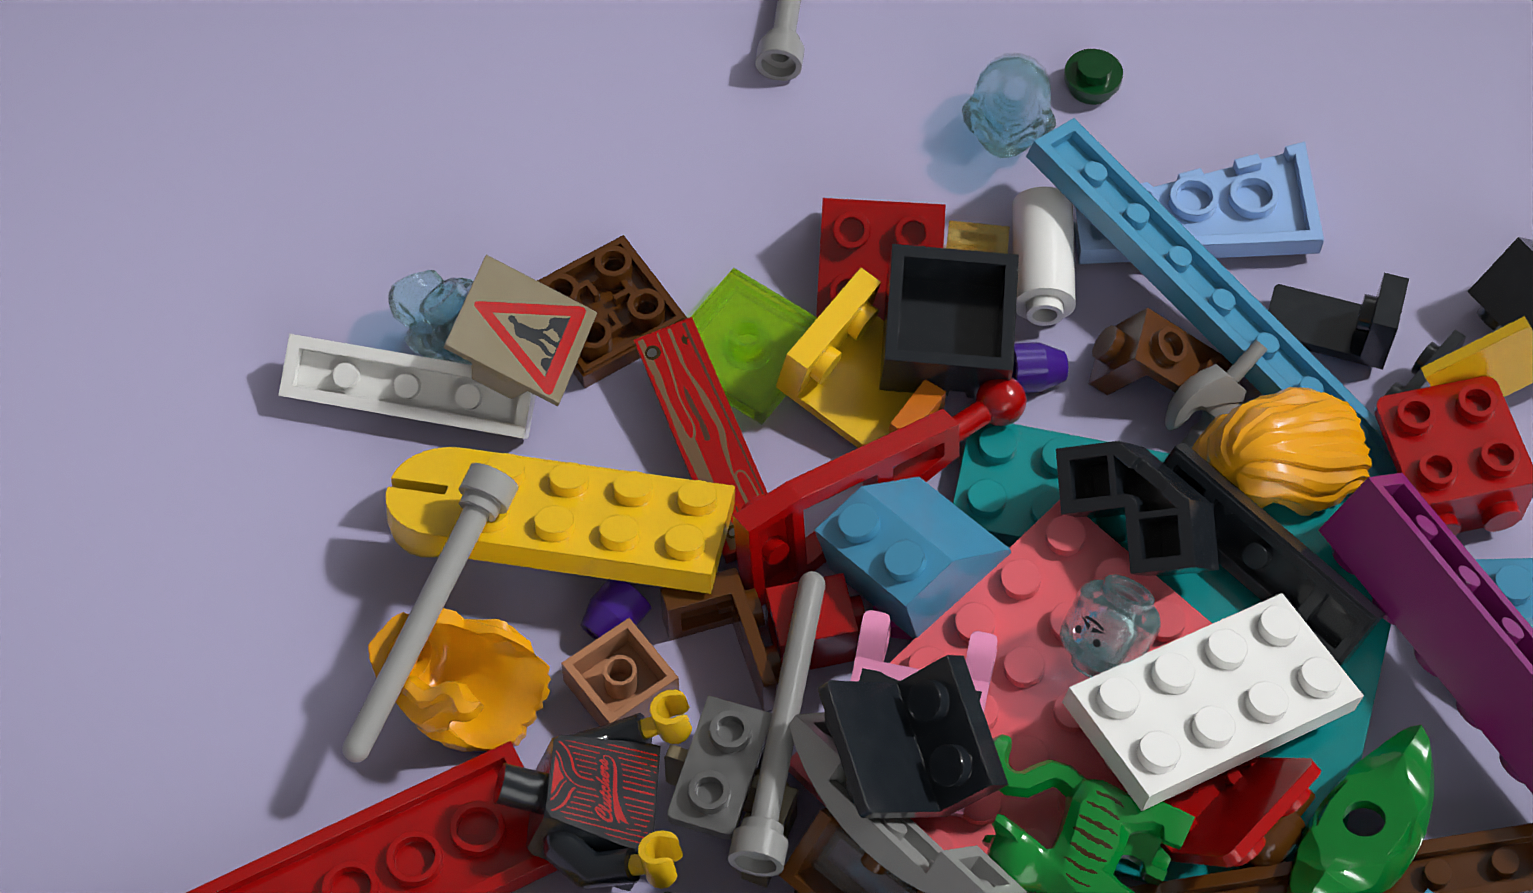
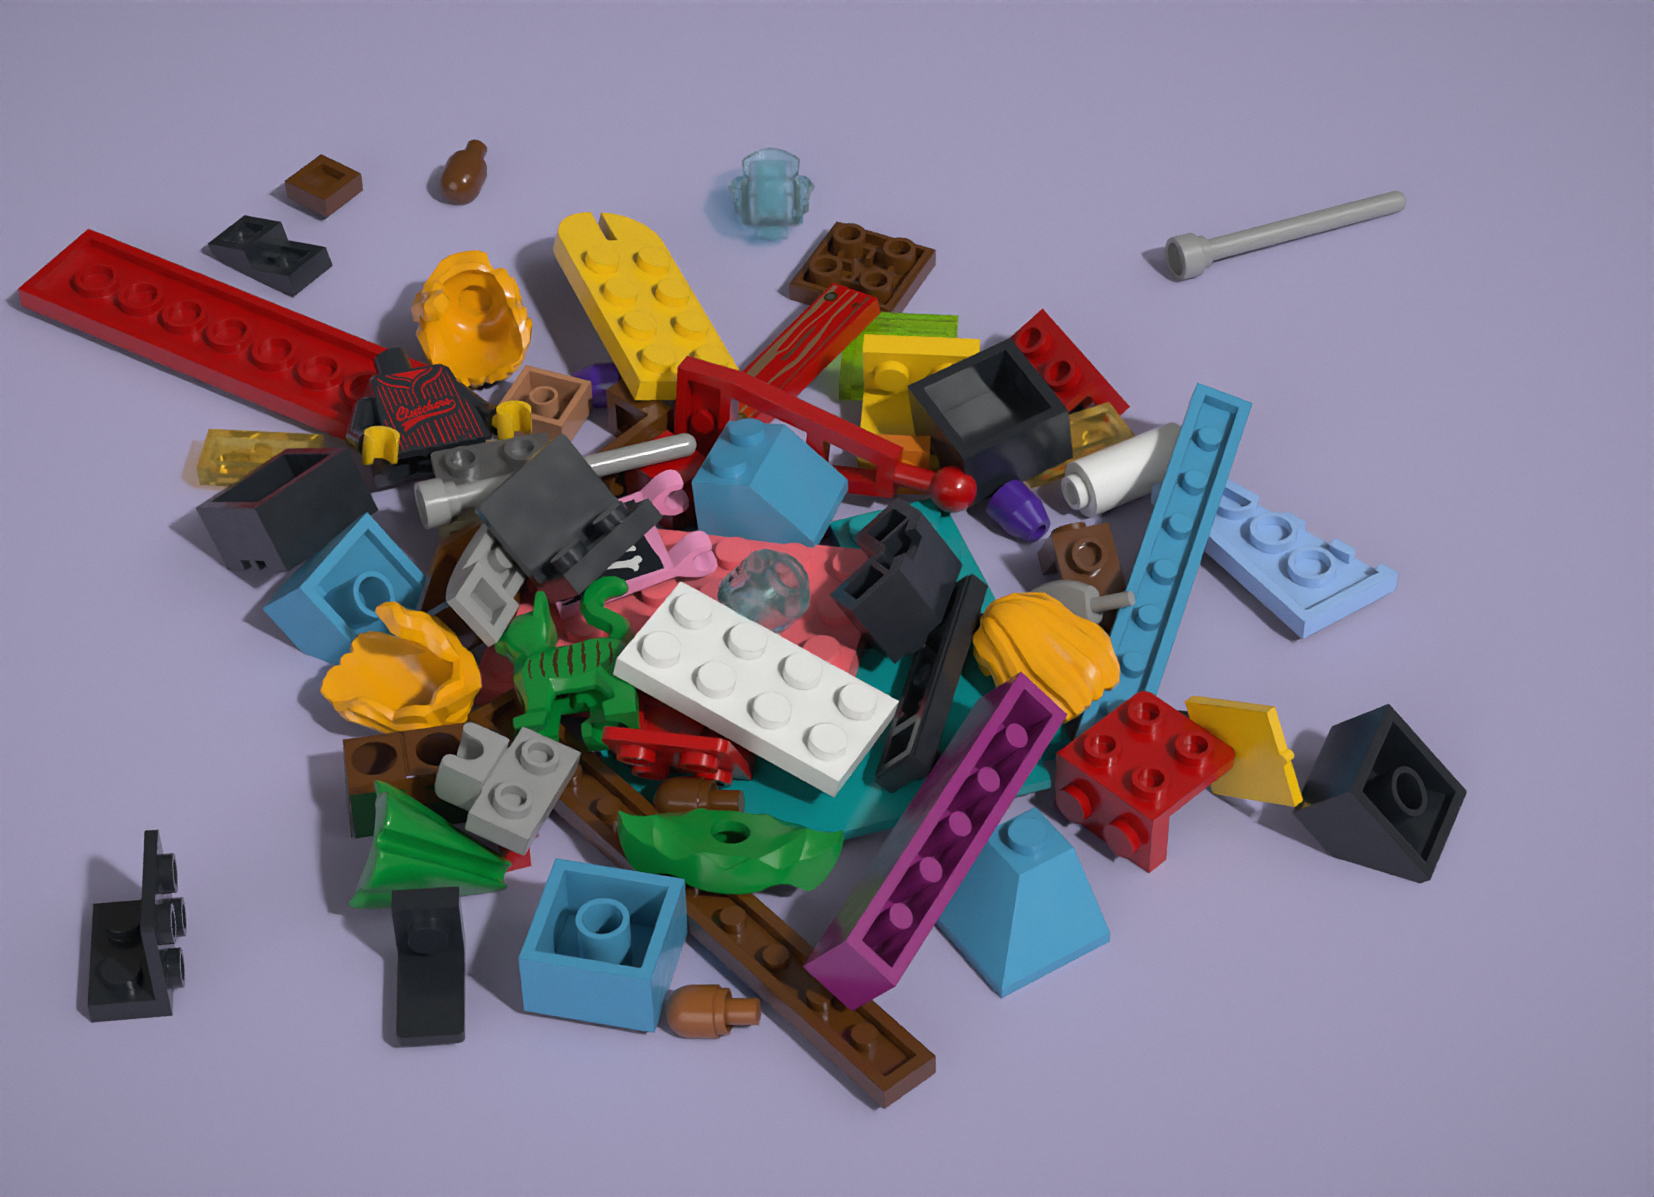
camera: 60 degrees right, 15 degrees down
(97, 710) = (324, 185): none -> reddish brown plate
(164, 820) = (265, 254): none -> black slope
(182, 569) = (464, 174): none -> reddish brown cylinder
(400, 386) = (700, 204): white plate -> none
(484, 496) = (598, 237): light grey piece -> none
(519, 333) = (776, 213): dark tan piece -> none
(1010, 105) = (1268, 378): clear light blue head -> none
(1093, 76) = (1349, 435): dark green plate -> none
(1342, 327) = (1232, 666): black bracket -> none

